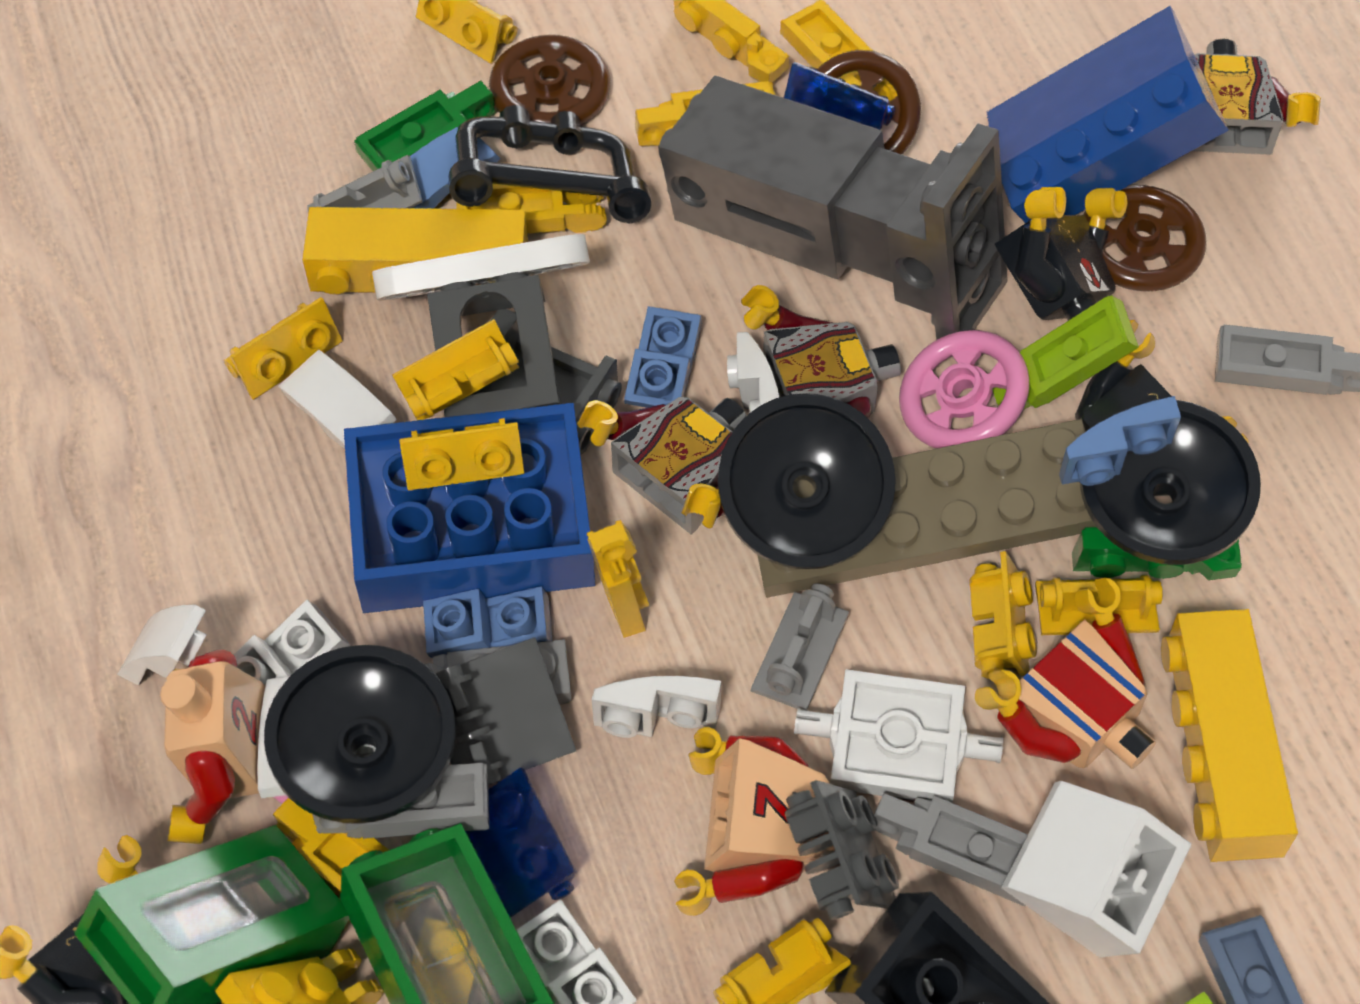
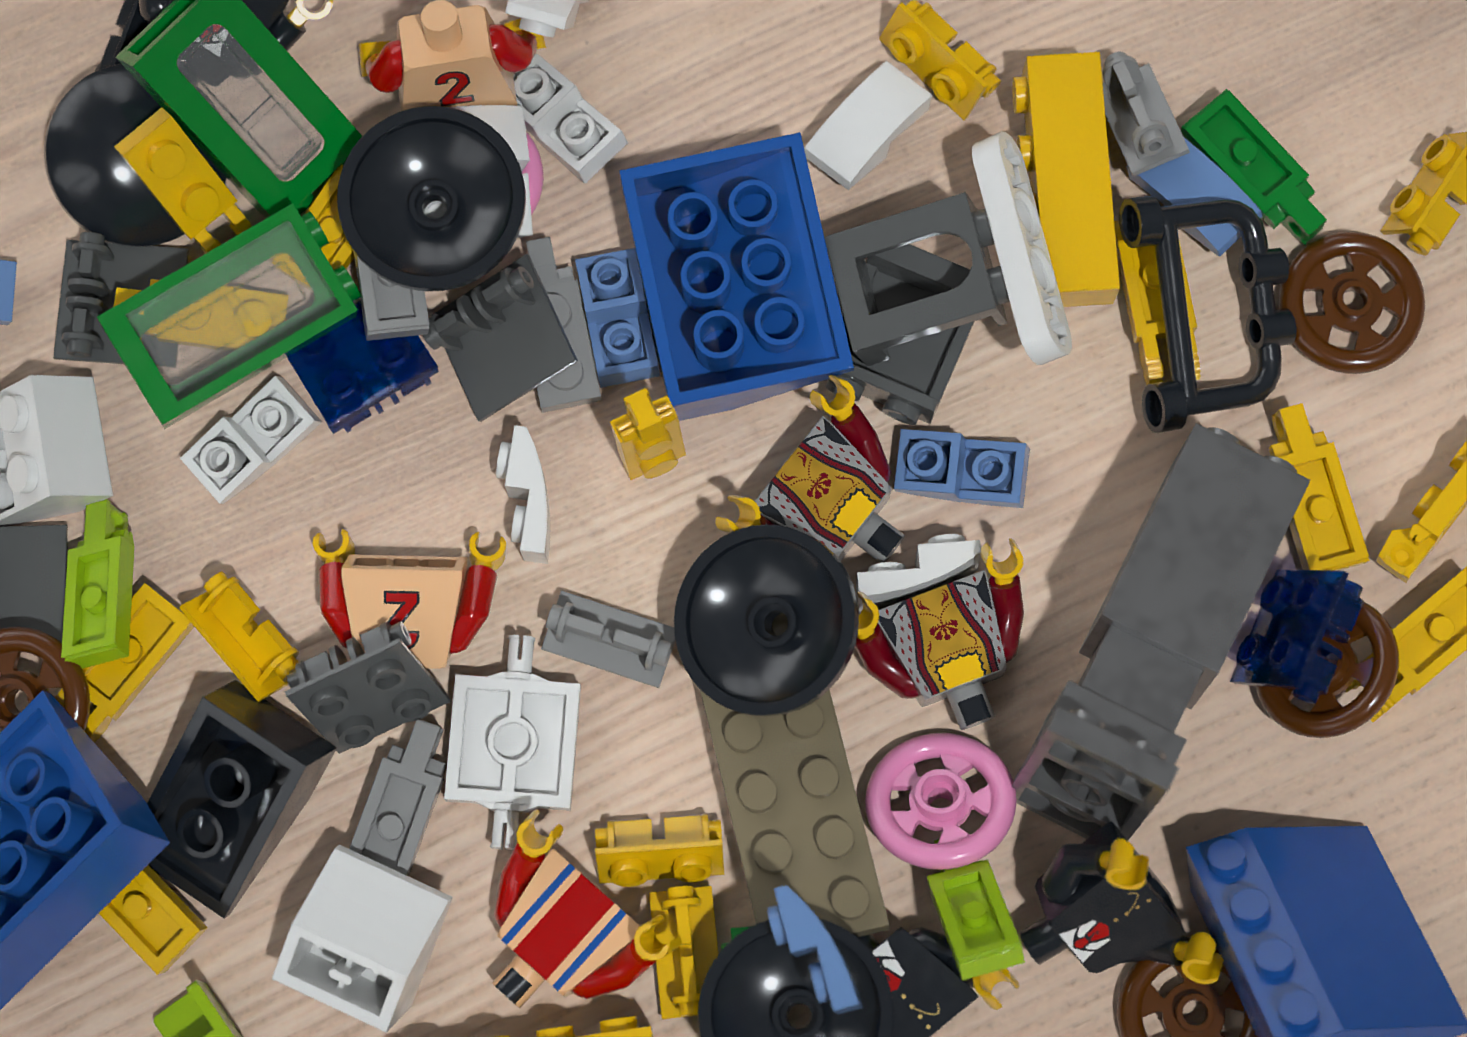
camera: 85 degrees right, 20 degrees up
(456, 370) = (871, 249): yellow hinge -> none
(461, 456) = (760, 228): yellow hinge -> none

